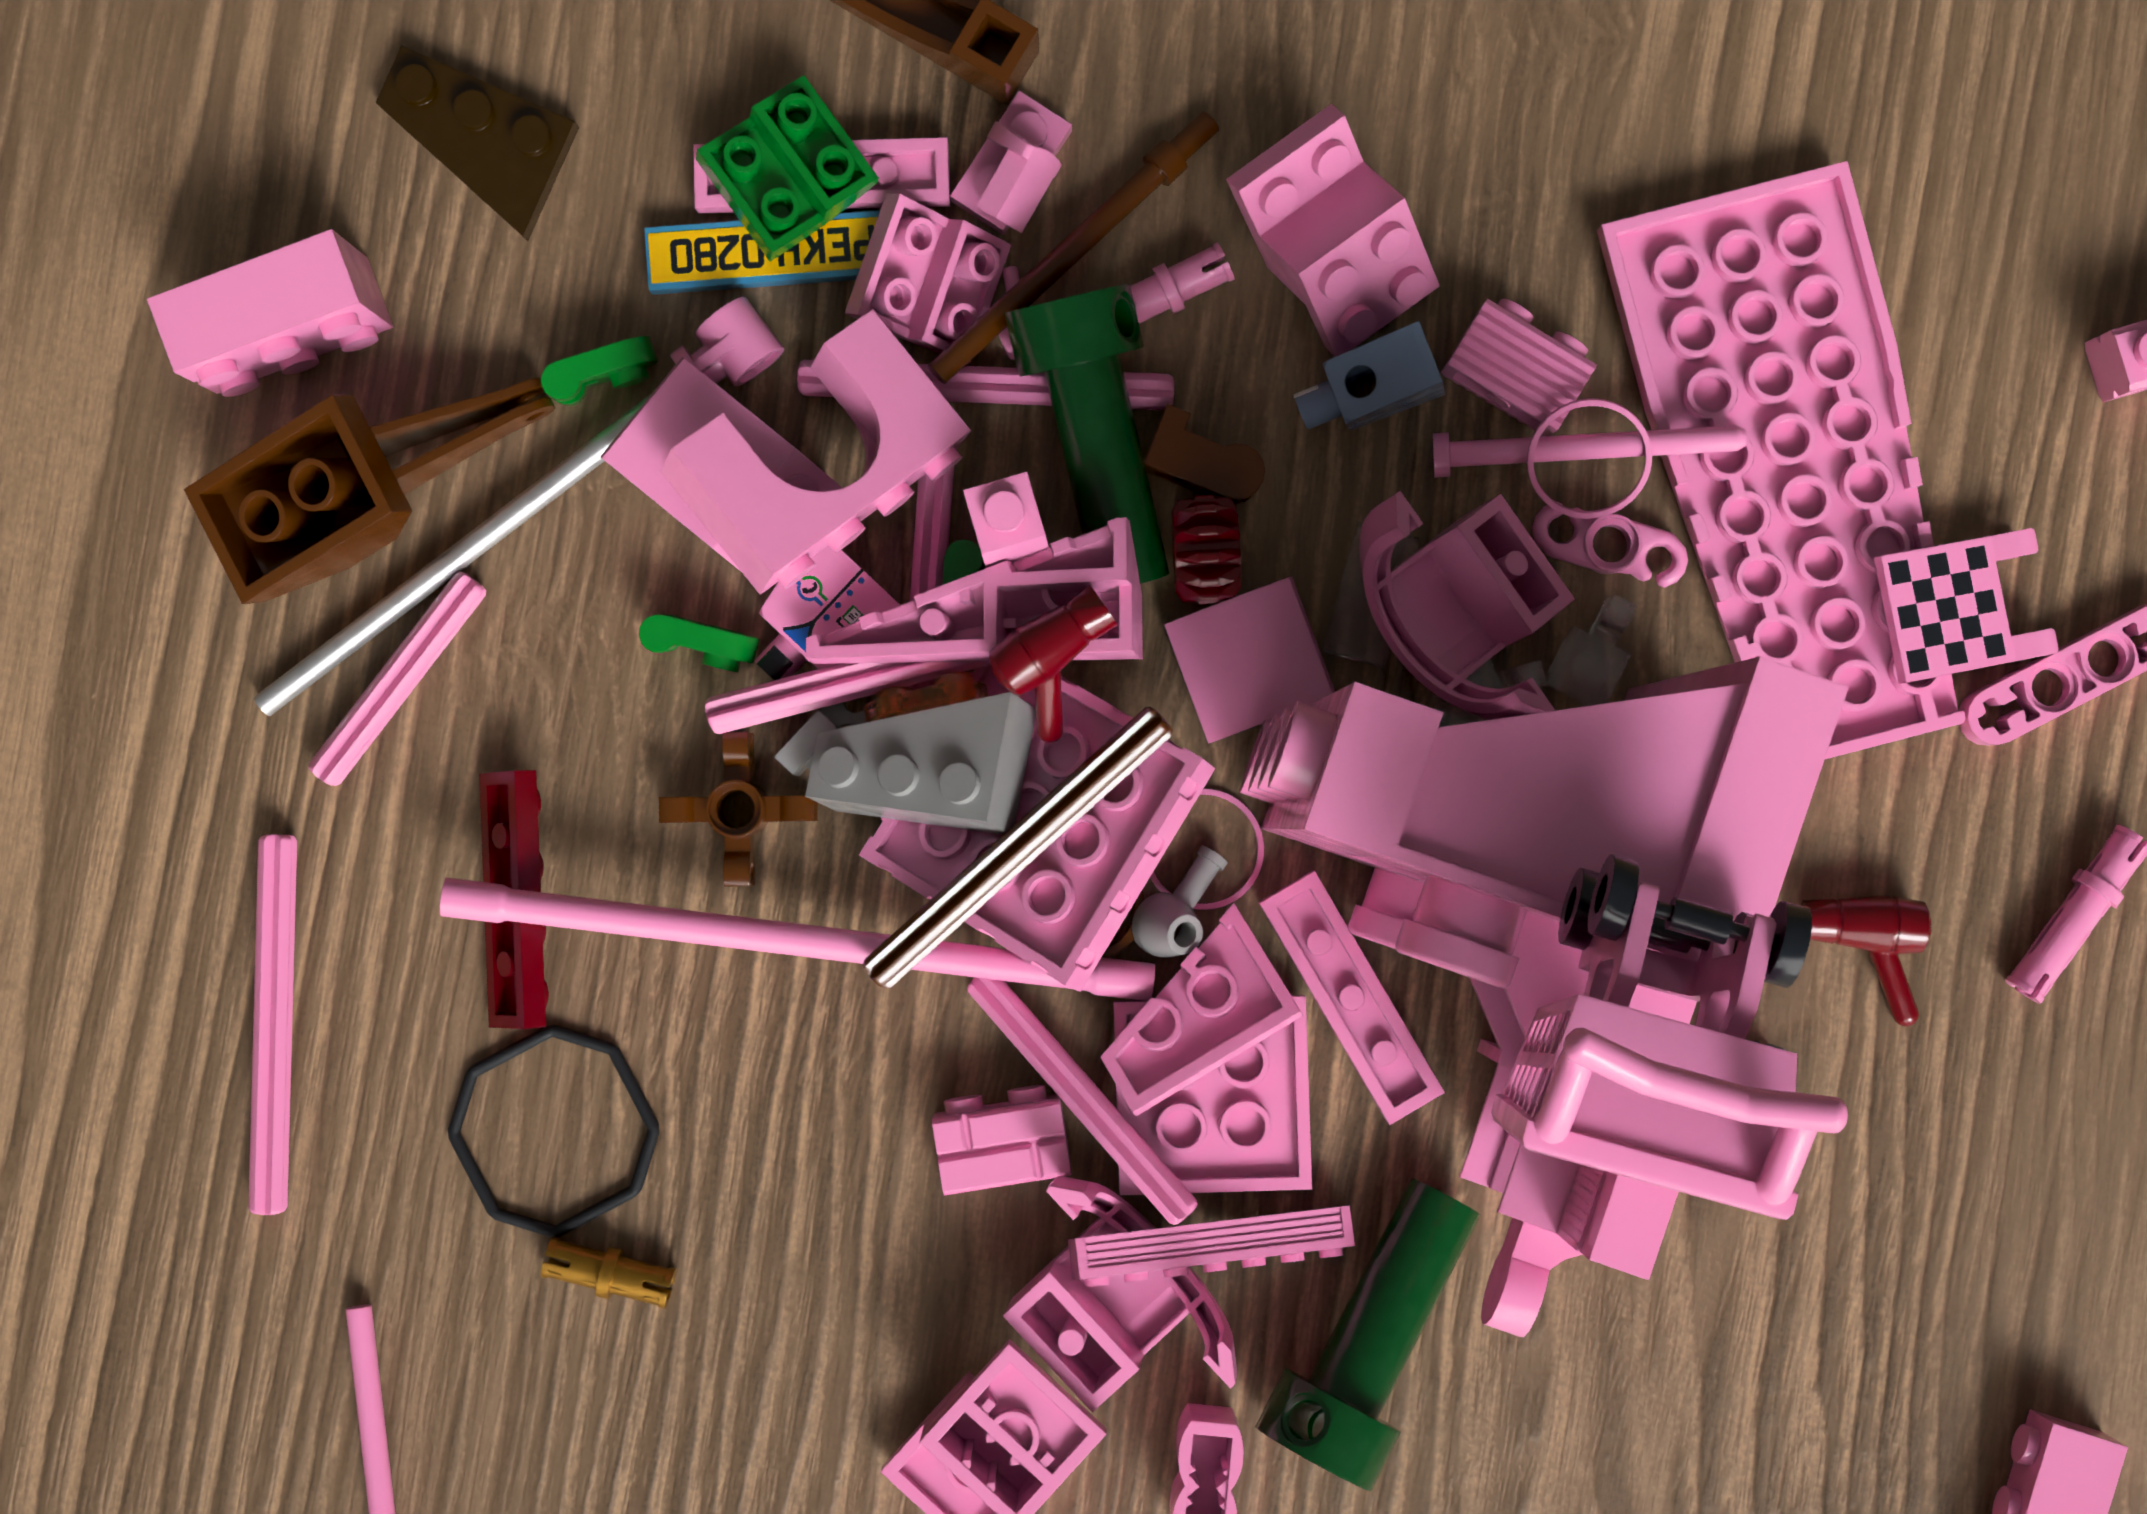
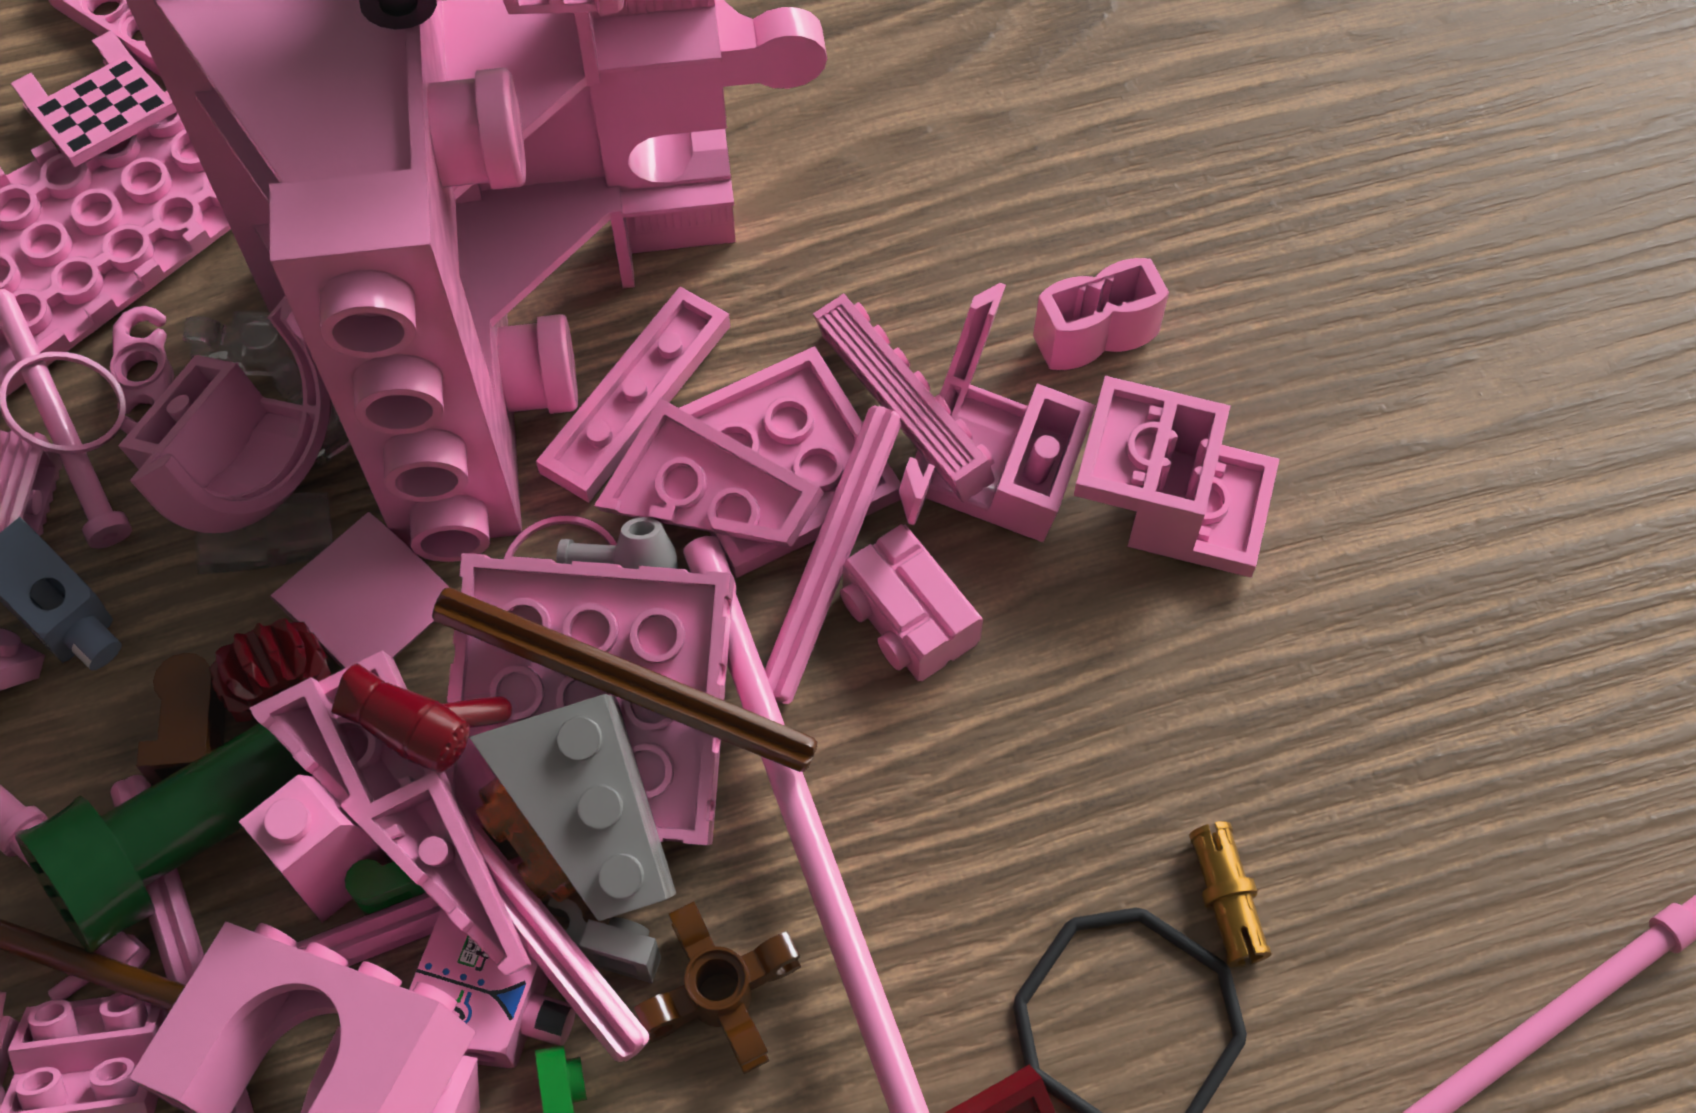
camera: 120 degrees left, 25 degrees down
(1337, 1410) = (908, 243): dark green piece -> none

